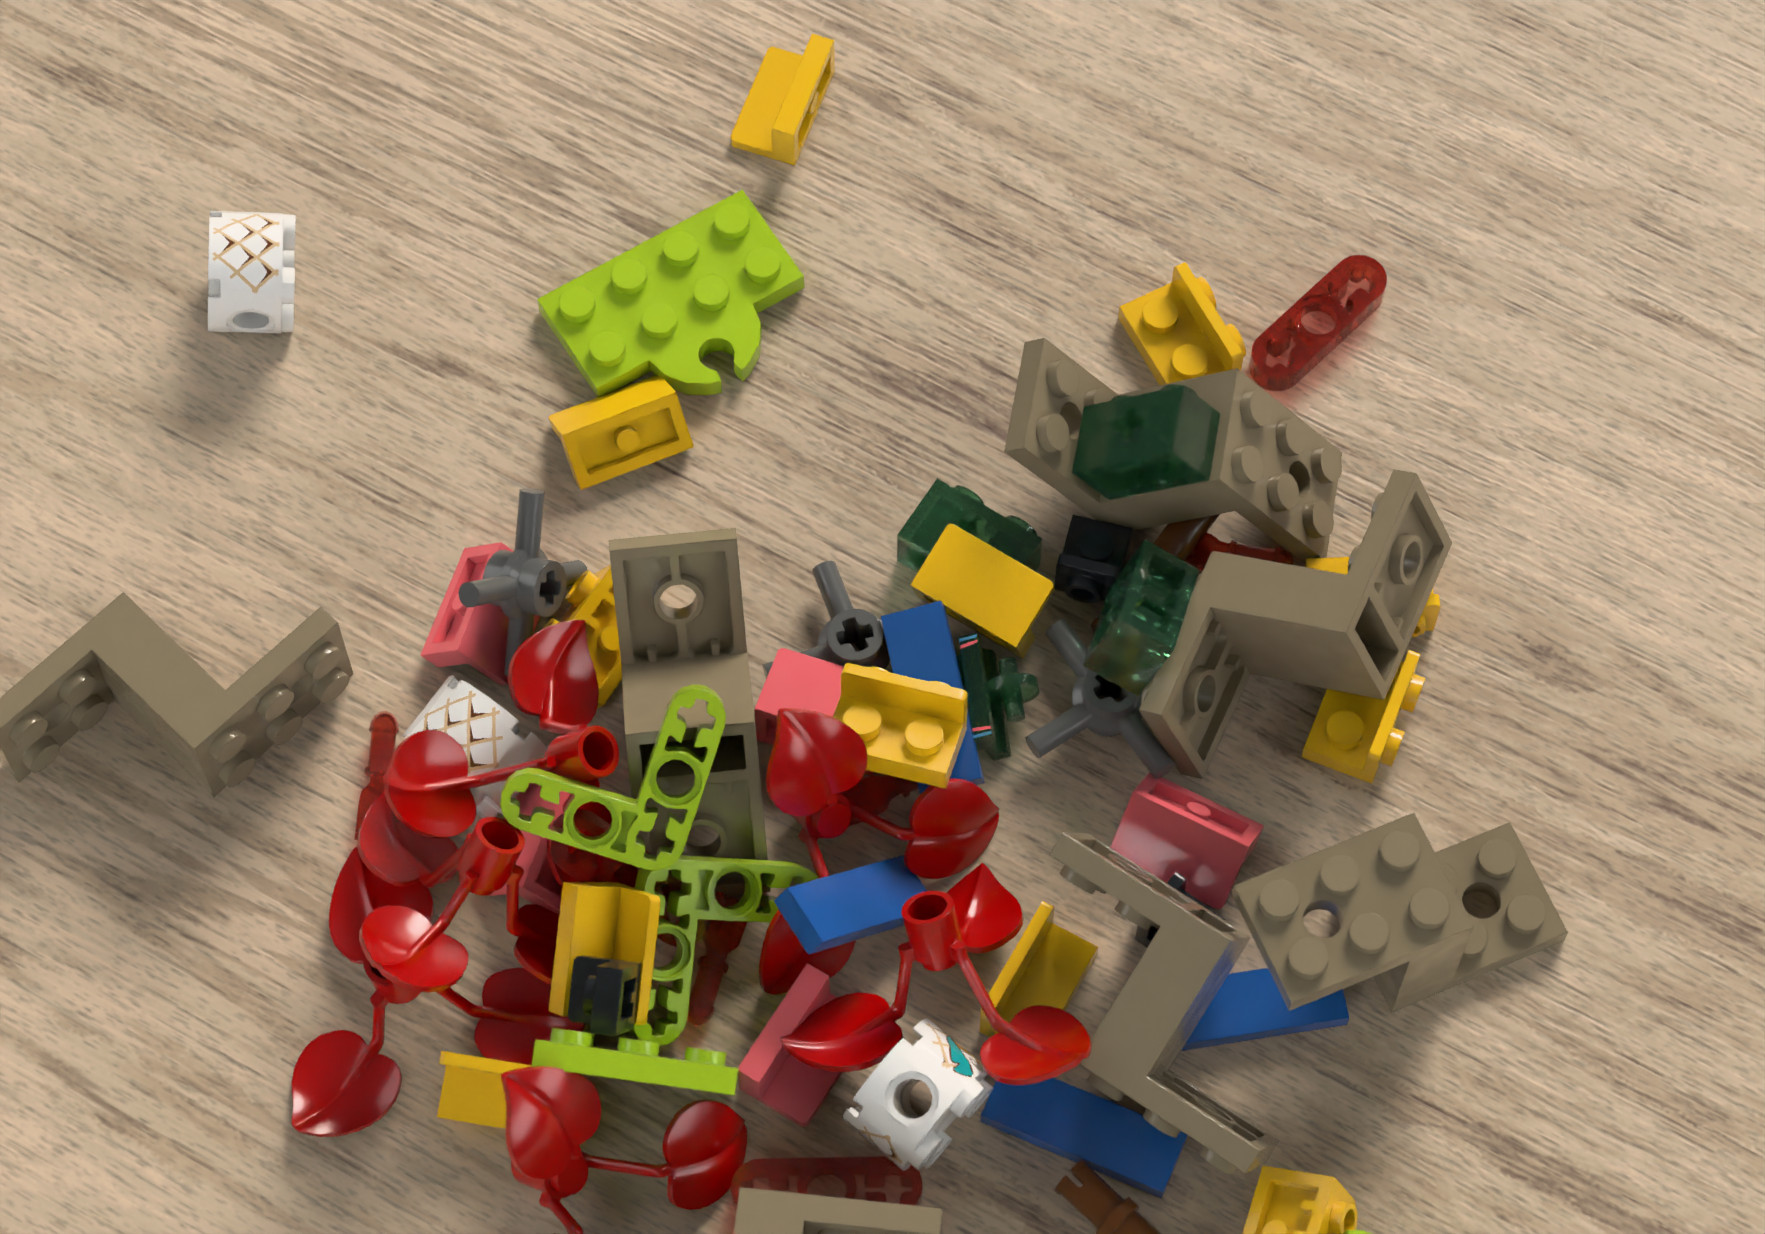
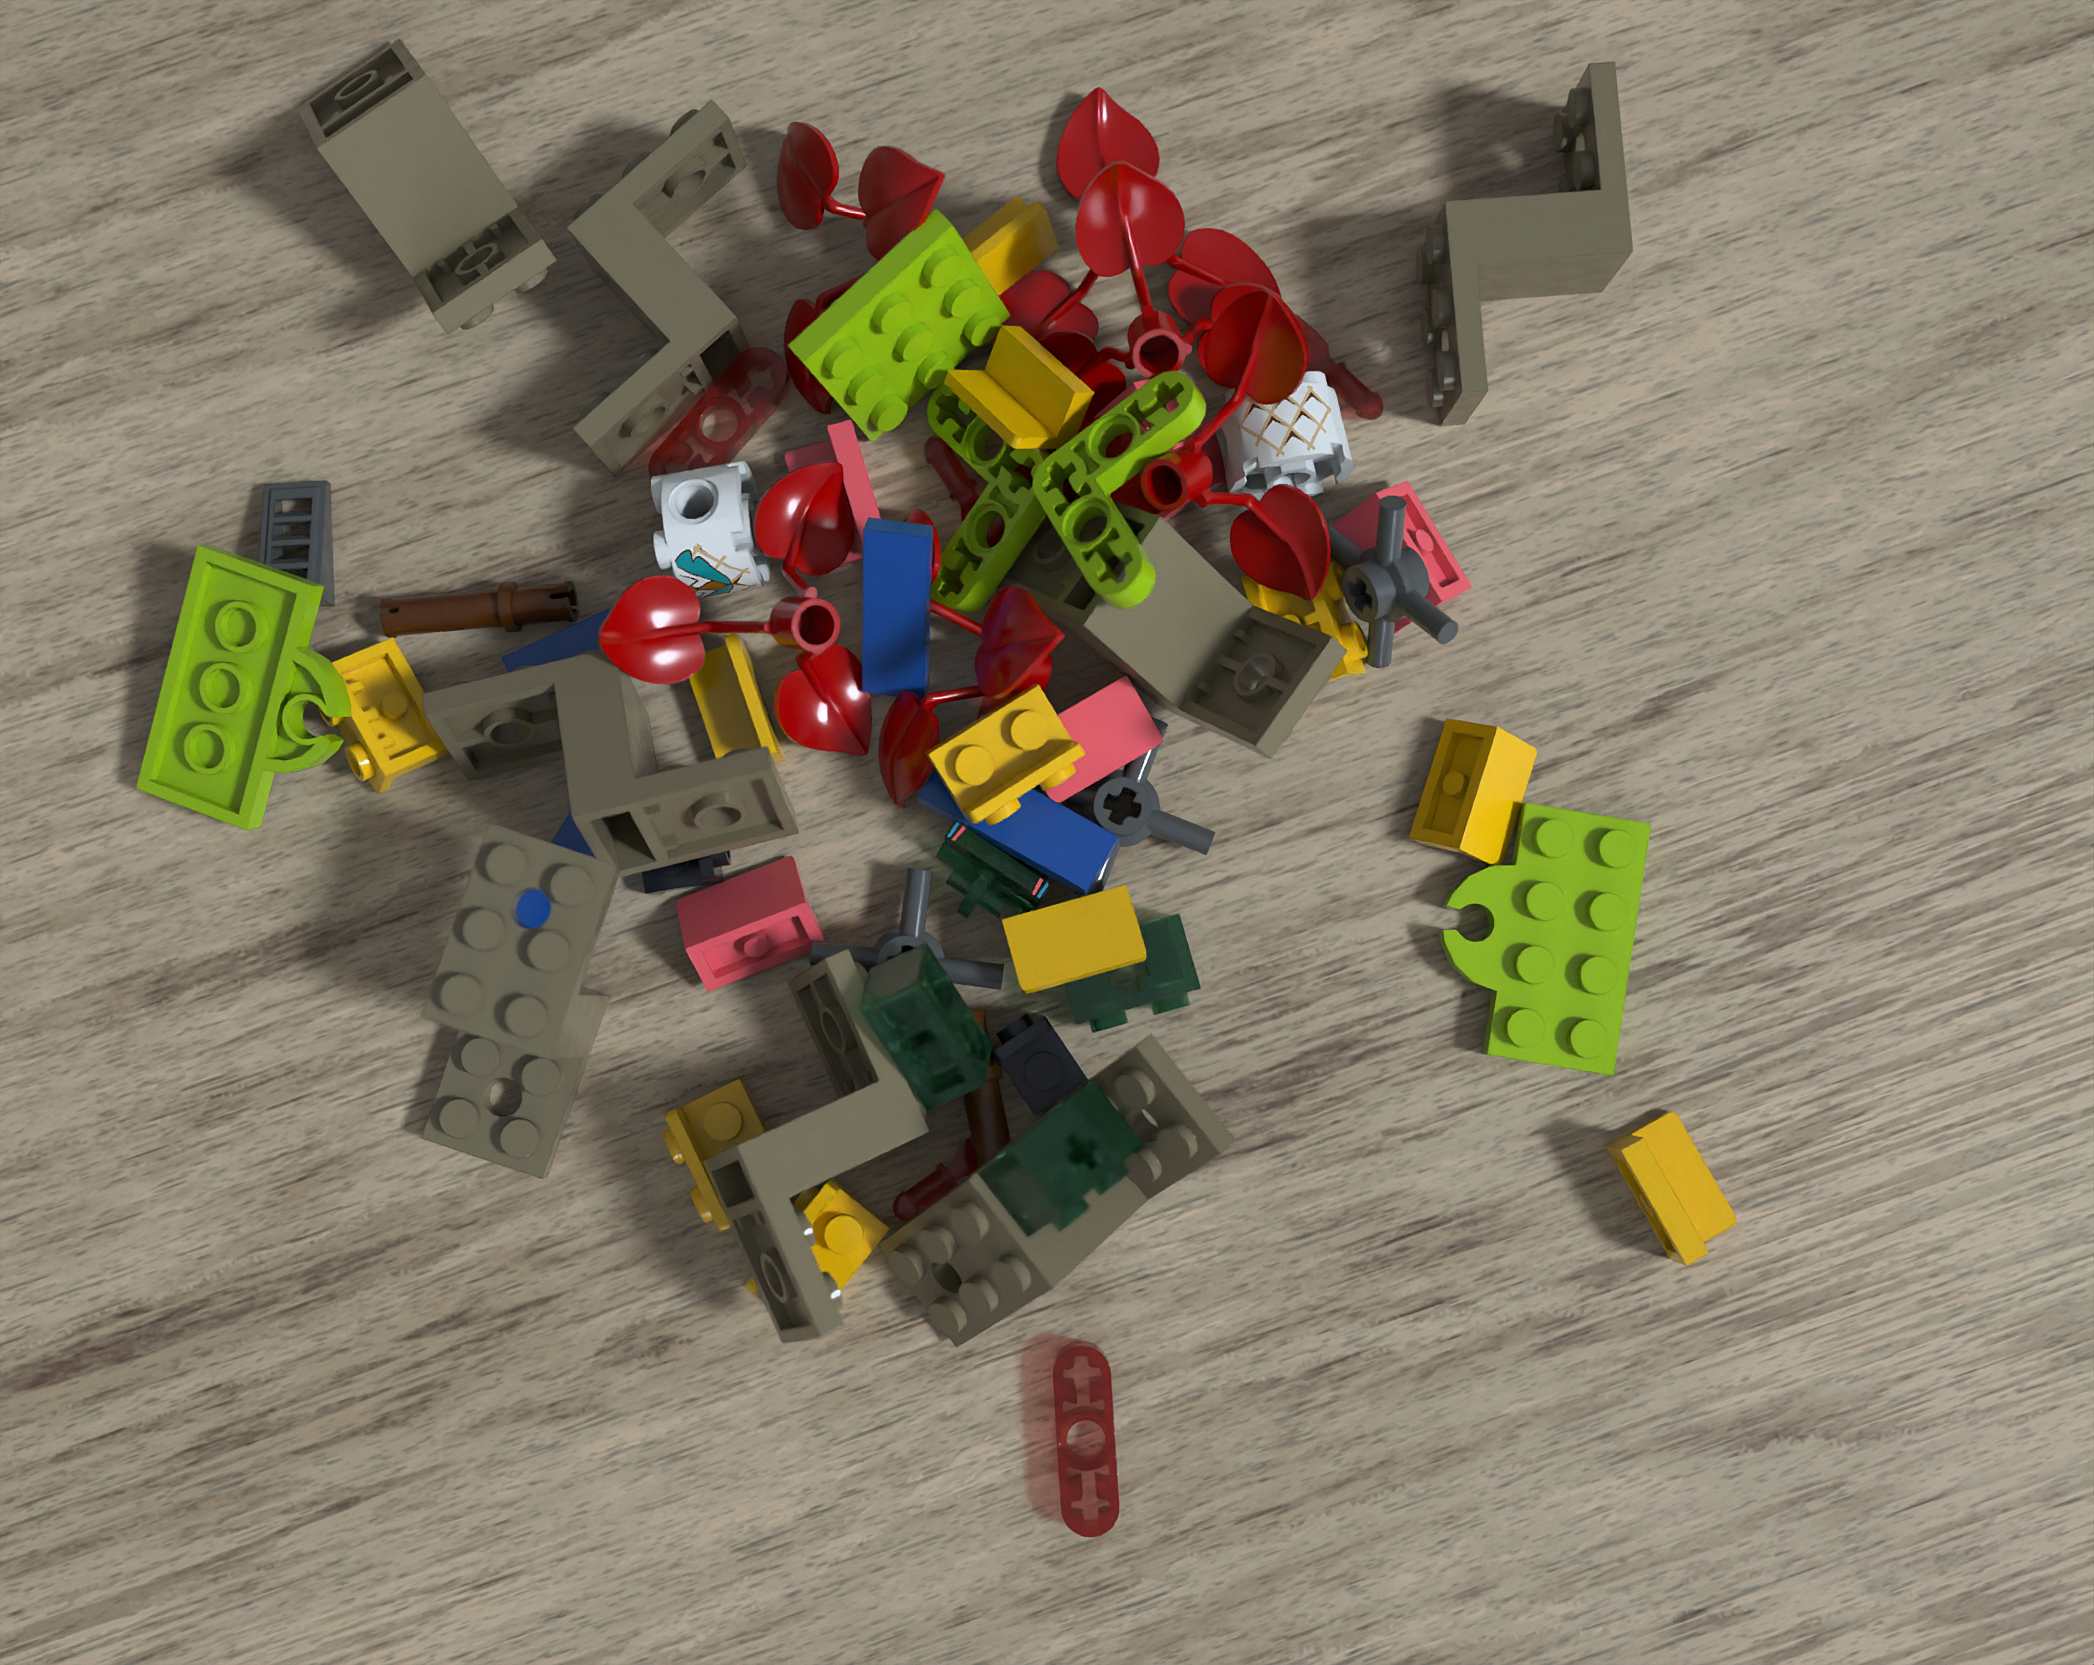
camera: 135 degrees right, 20 degrees up
(251, 272) = (1869, 602): white brick -> none
(604, 994) = (976, 353): black bracket -> none
(1181, 330) = (1165, 1313): yellow bracket -> none

